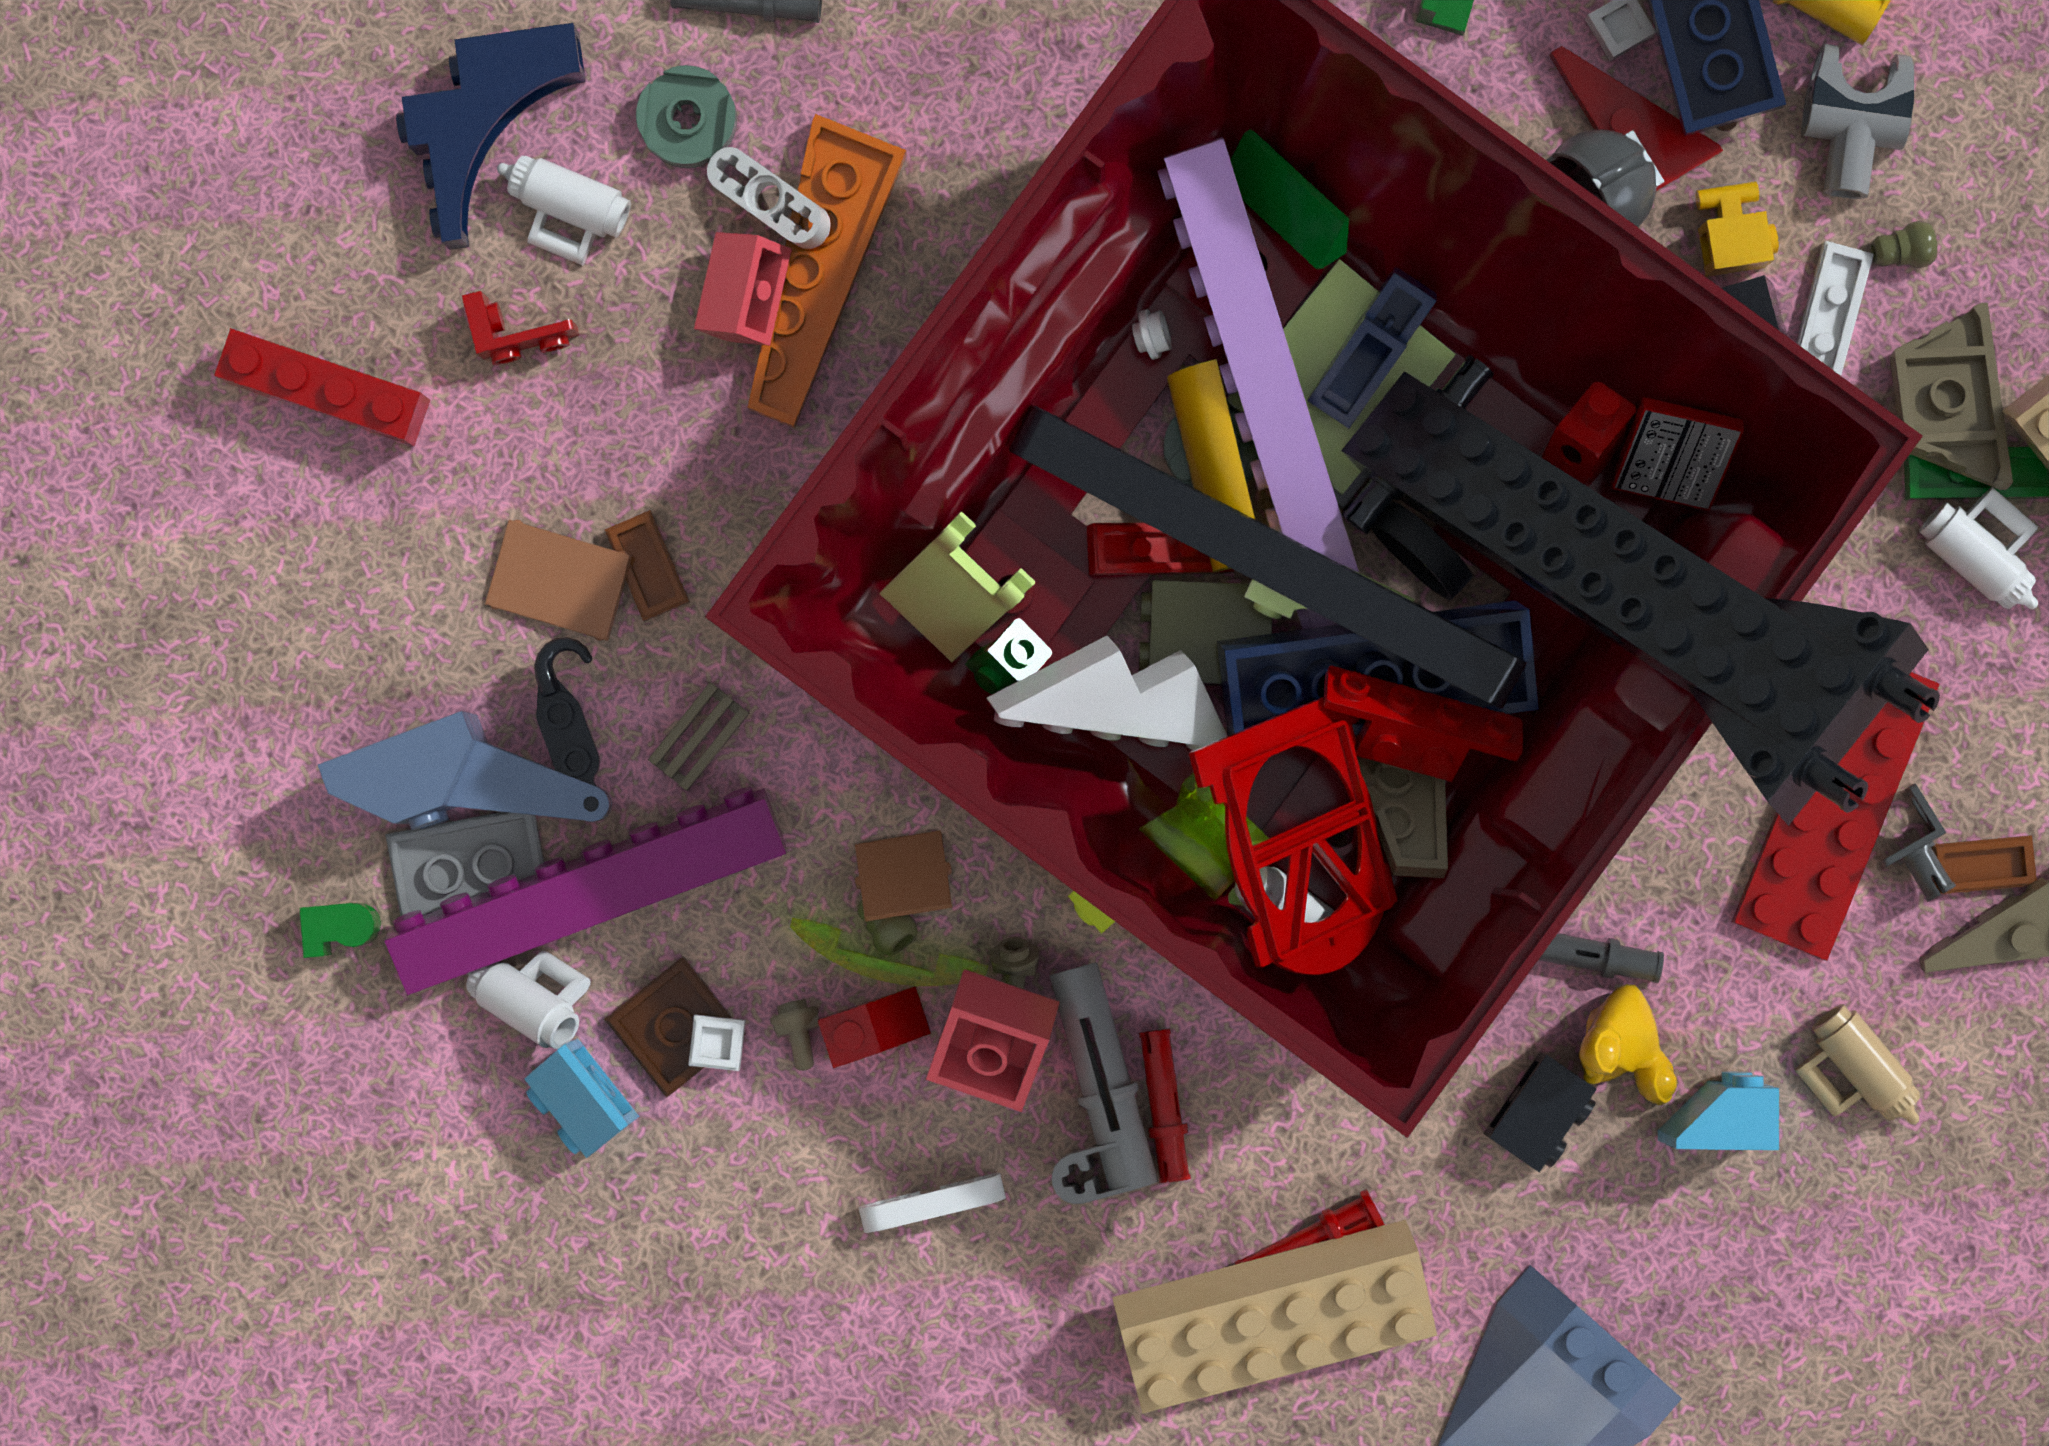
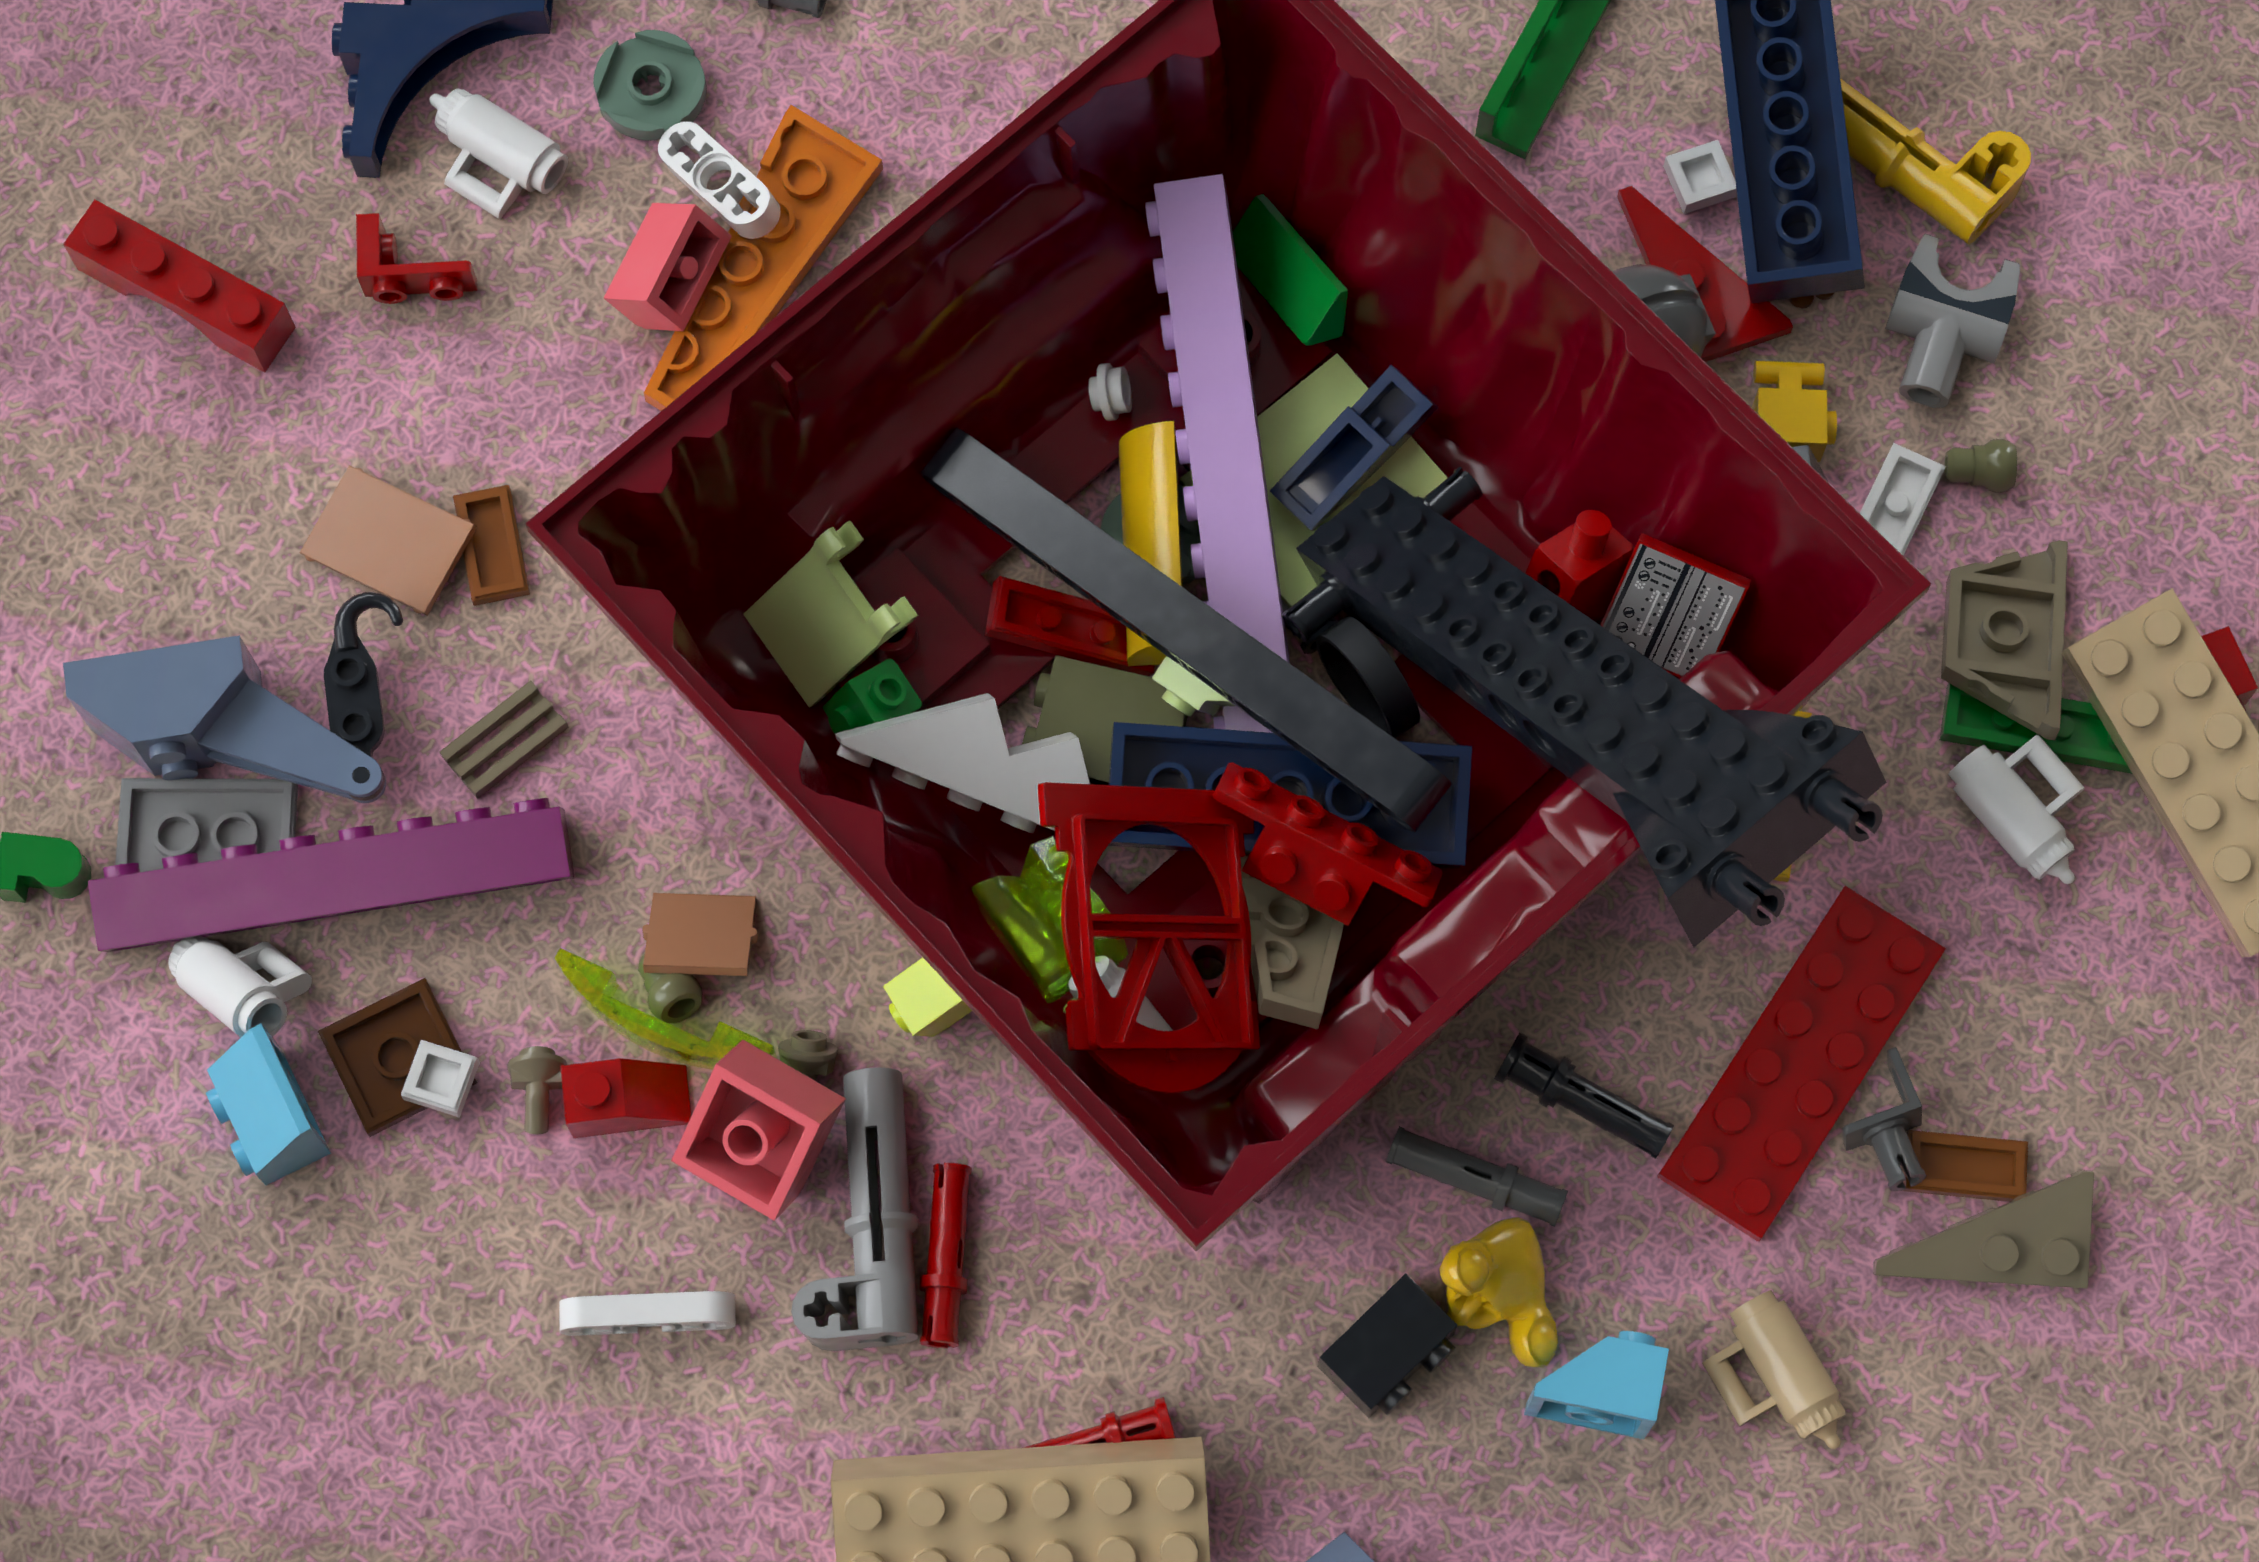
camera: 10 degrees right, 15 degrees down
(1639, 863) = (1558, 1083): none -> black pin

